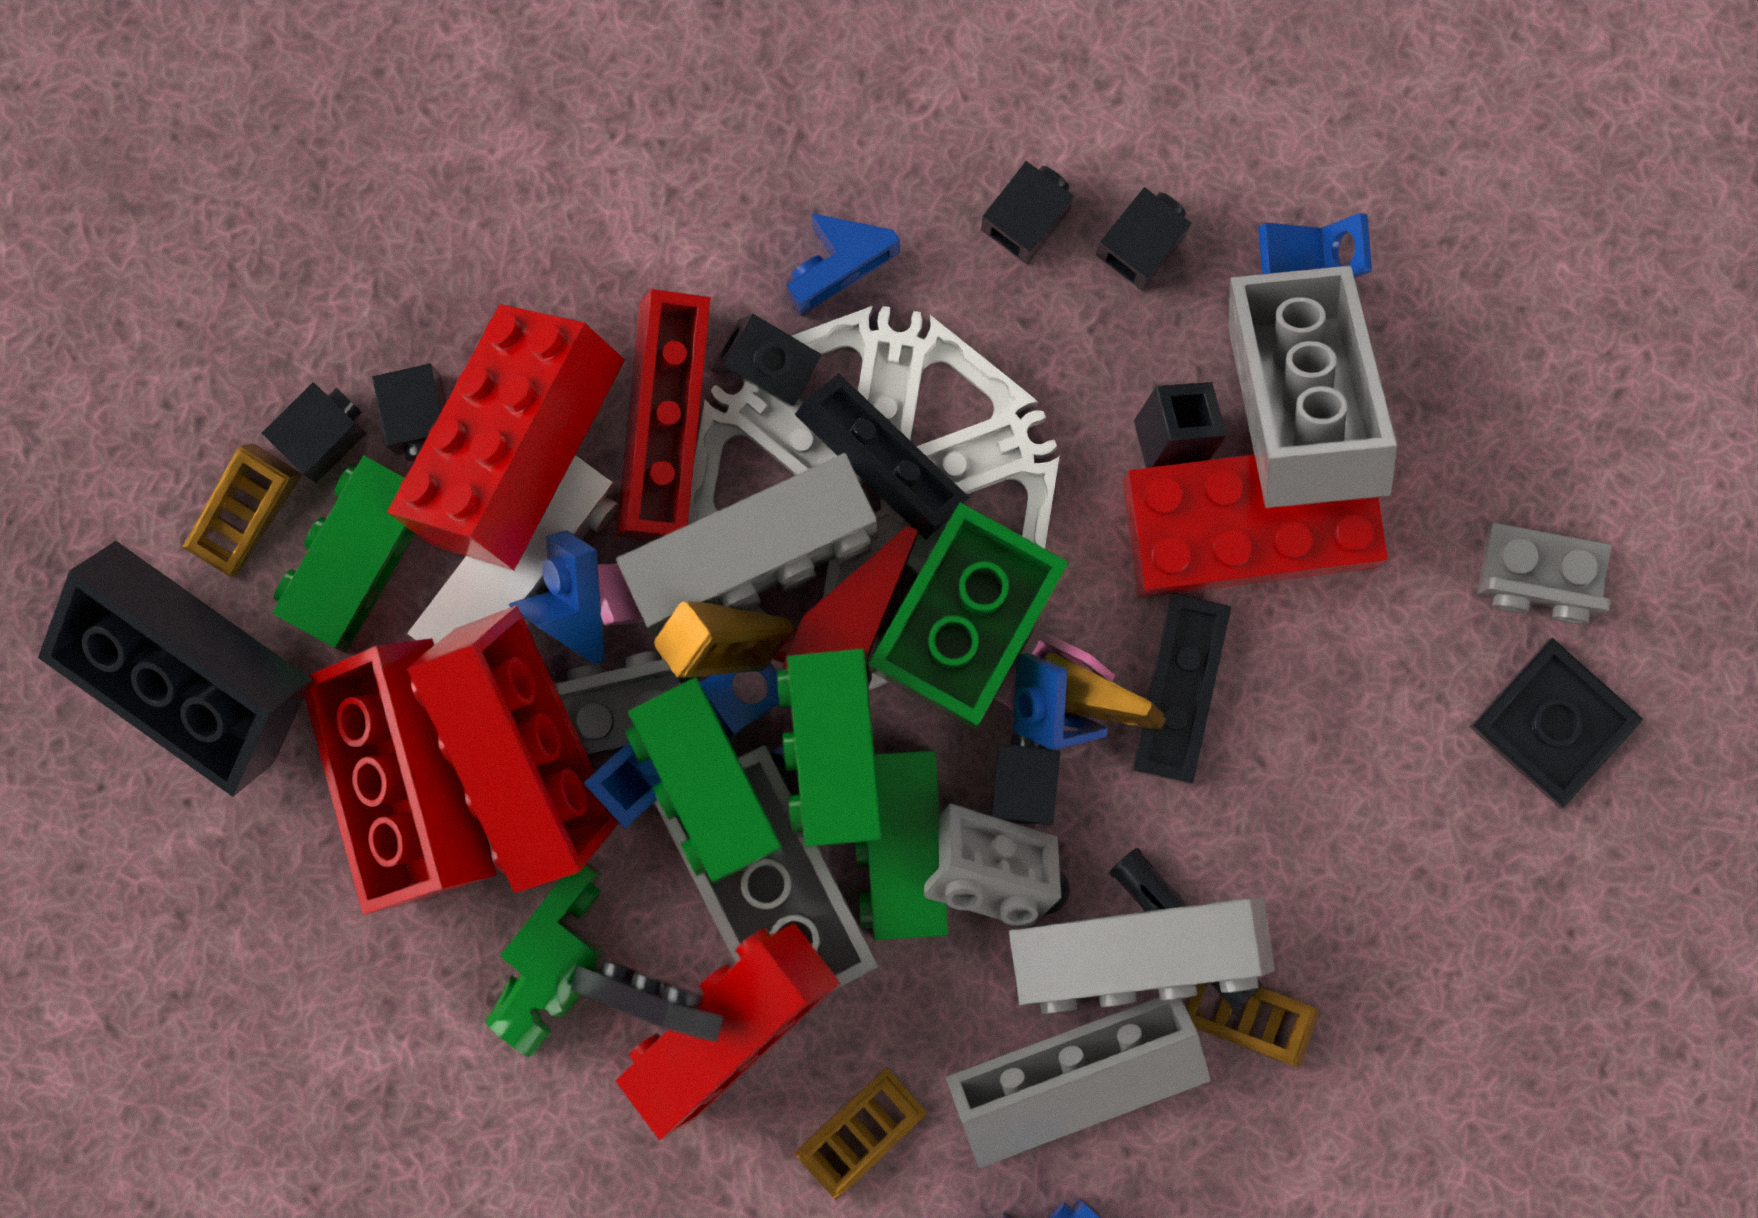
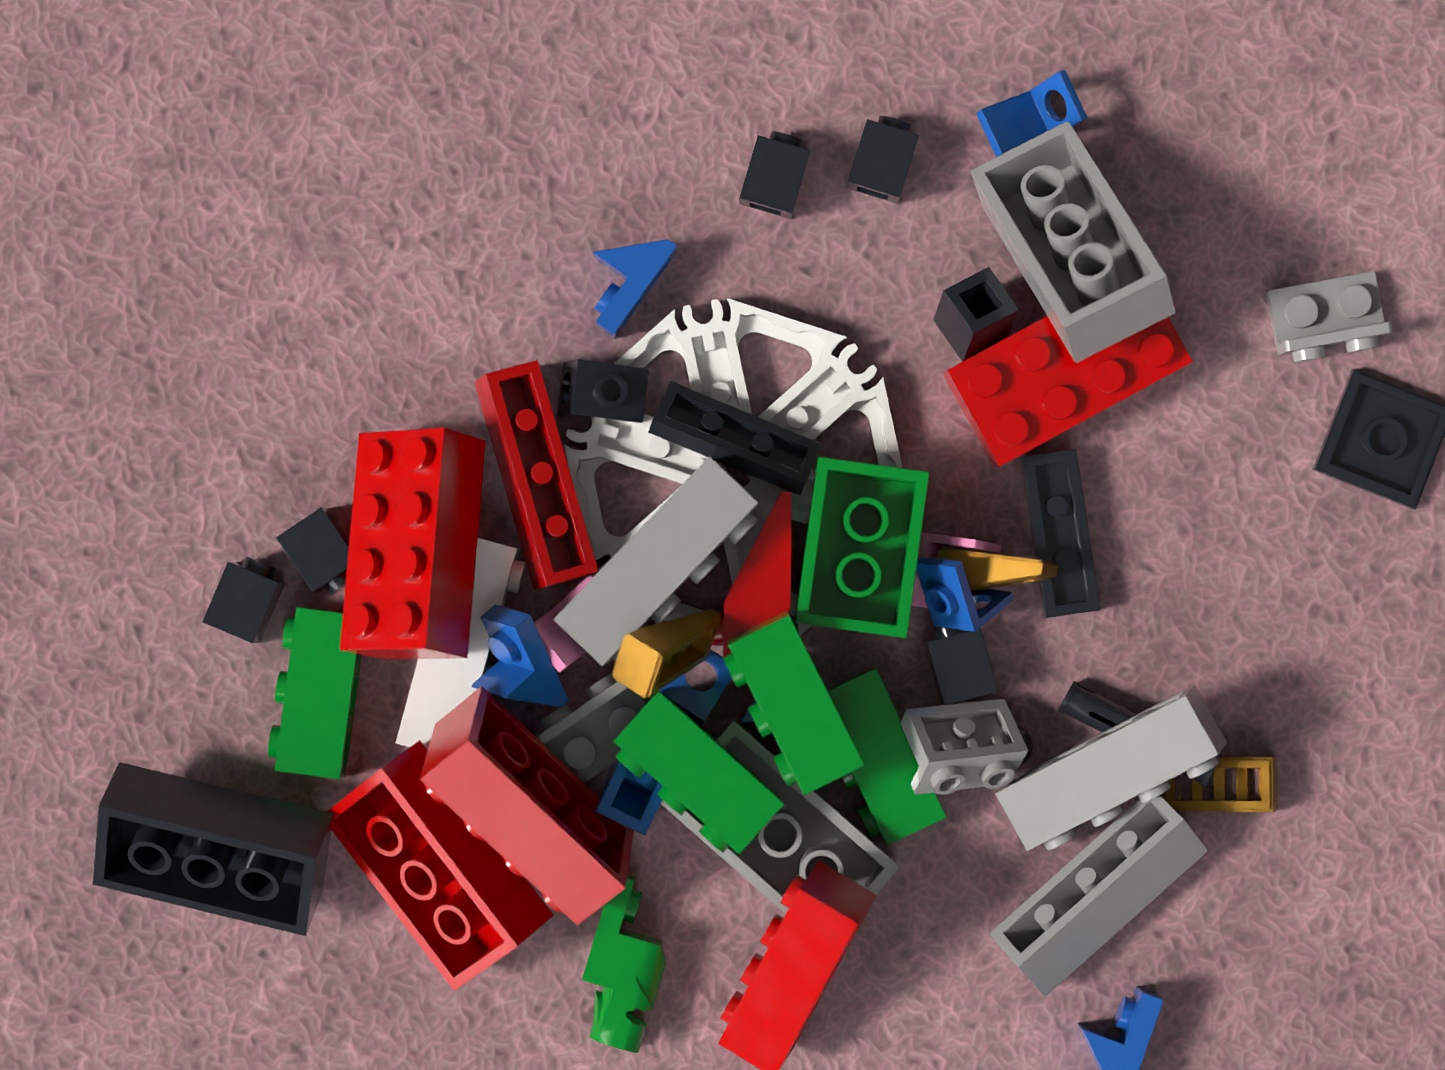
camera: 20 degrees left, 5 degrees up
(235, 477) = (214, 645): pearl gold slope -> none
(648, 999) = (722, 969): black plate -> none
(820, 1167) = (915, 1048): pearl gold slope -> none

